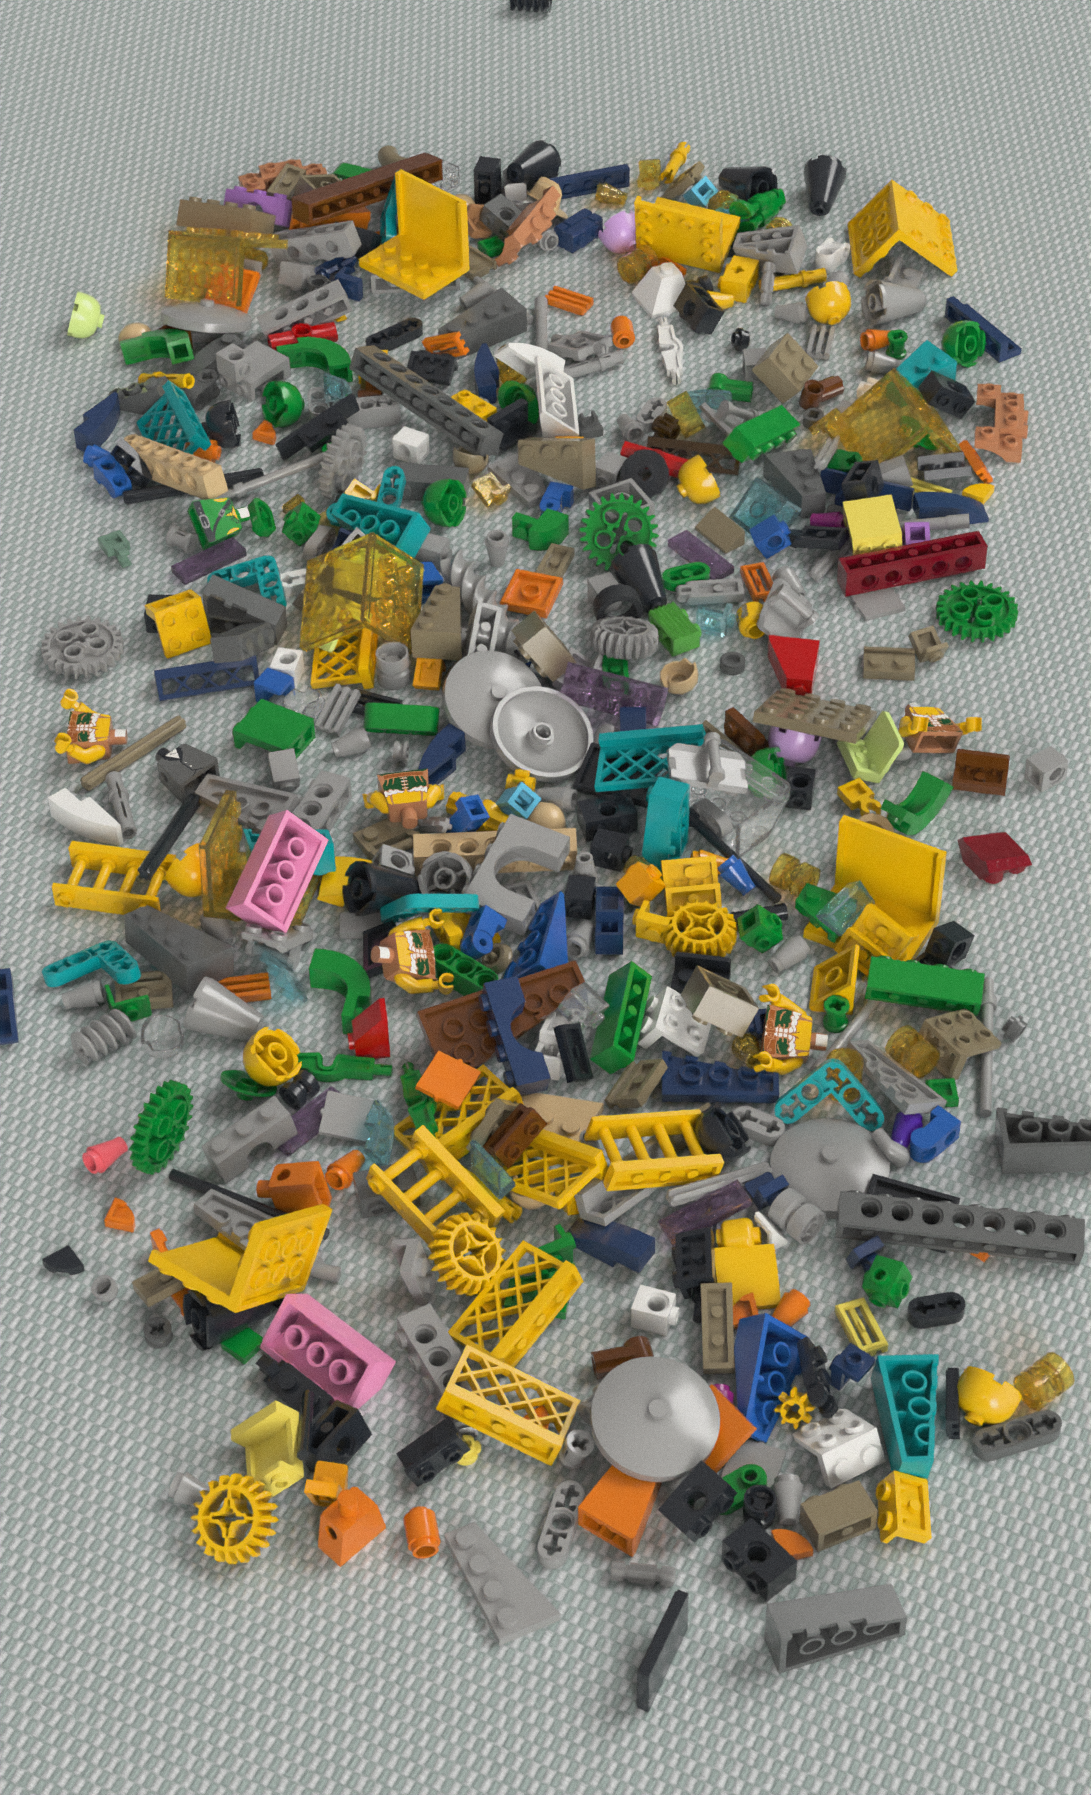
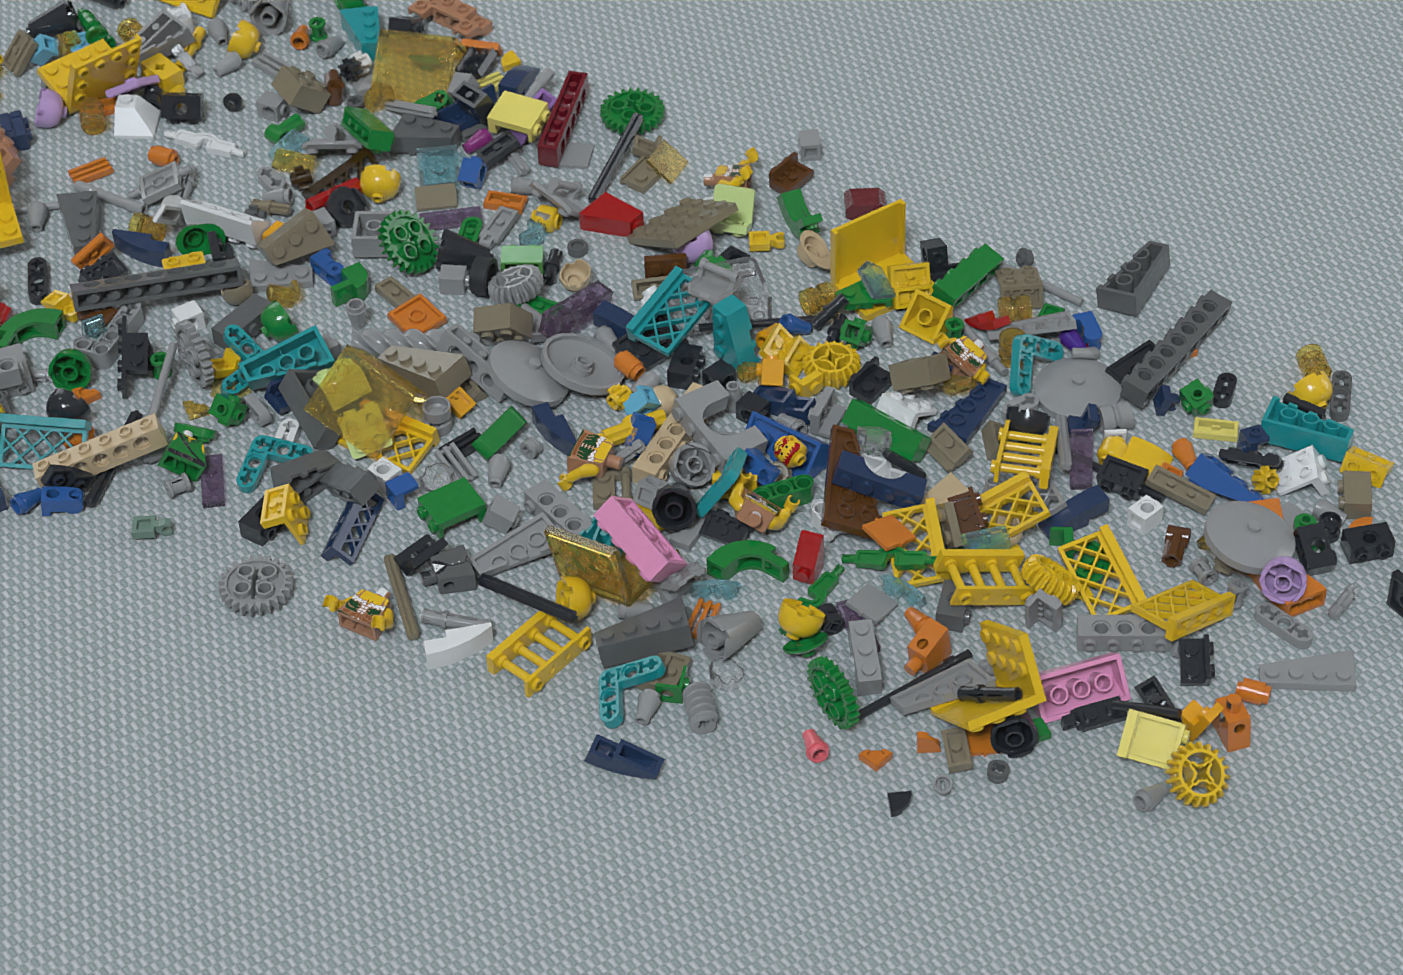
camera: 60 degrees left, 0 degrees up
(198, 736) = (419, 553): none -> black bracket
(231, 1259) = (981, 693): none -> black pin
(518, 946) = (790, 451): none -> yellow head
(567, 769) = (629, 365): none -> orange brick
(600, 1478) = (1283, 579): none -> lavender cylinder
(610, 429) = (272, 207): none -> dark tan axle
(610, 953) = (825, 413): none -> light grey bracket
(691, 653) = (552, 266): none -> black pin
(693, 264) = (132, 85): none -> lavender plate
(776, 892) = (829, 311): none -> black pin
(847, 387) = (350, 69): none -> black gear
(874, 1036) = (987, 321): none -> red slope
(888, 627) = (616, 157): none -> black axle
(917, 669) = (666, 161): none -> clear yellow piece

